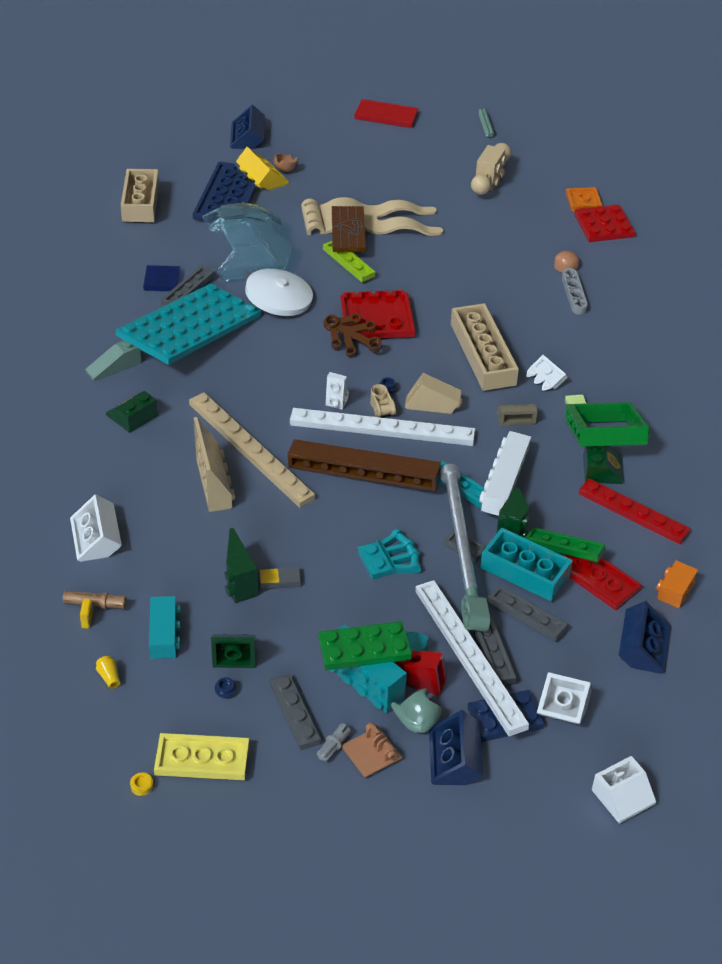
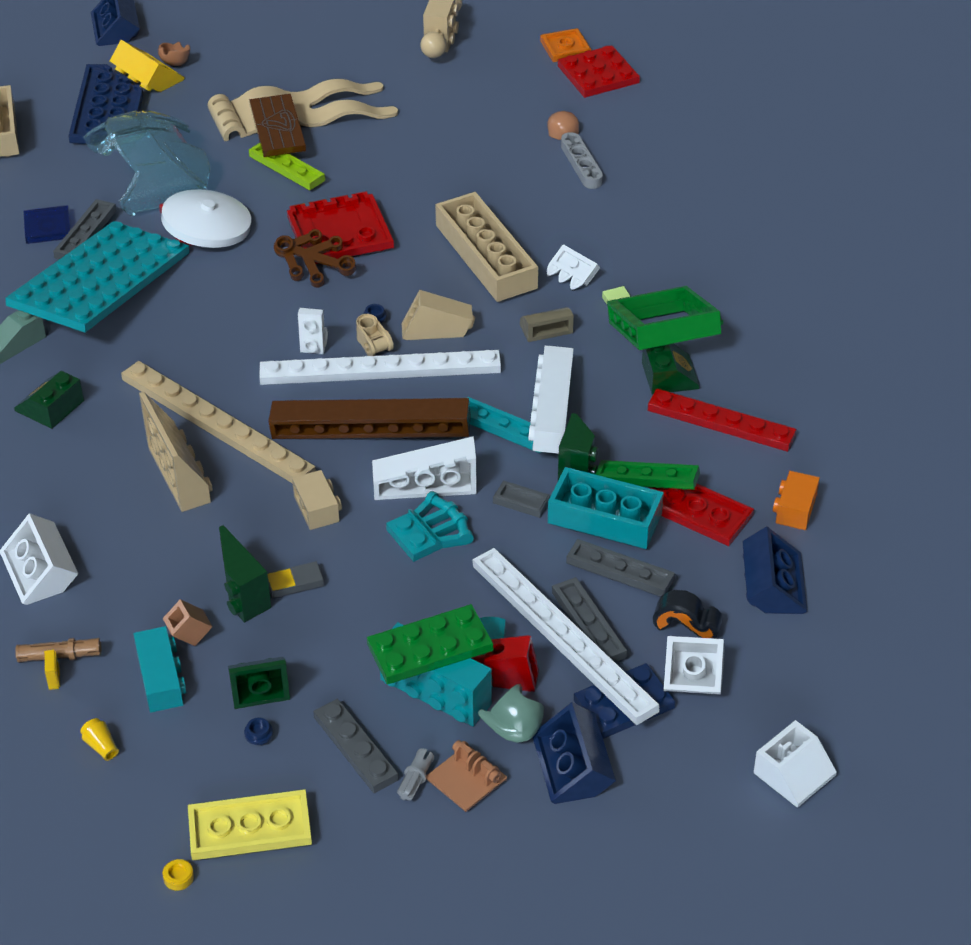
camera: 10 degrees left, 0 degrees up
(192, 596) = (187, 622): none -> nougat brick
(309, 520) = (316, 499): none -> tan brick
(407, 512) = (439, 468): none -> white wedge
(473, 608) = (553, 573): flat silver piece -> none
(570, 656) = (688, 611): none -> black animal

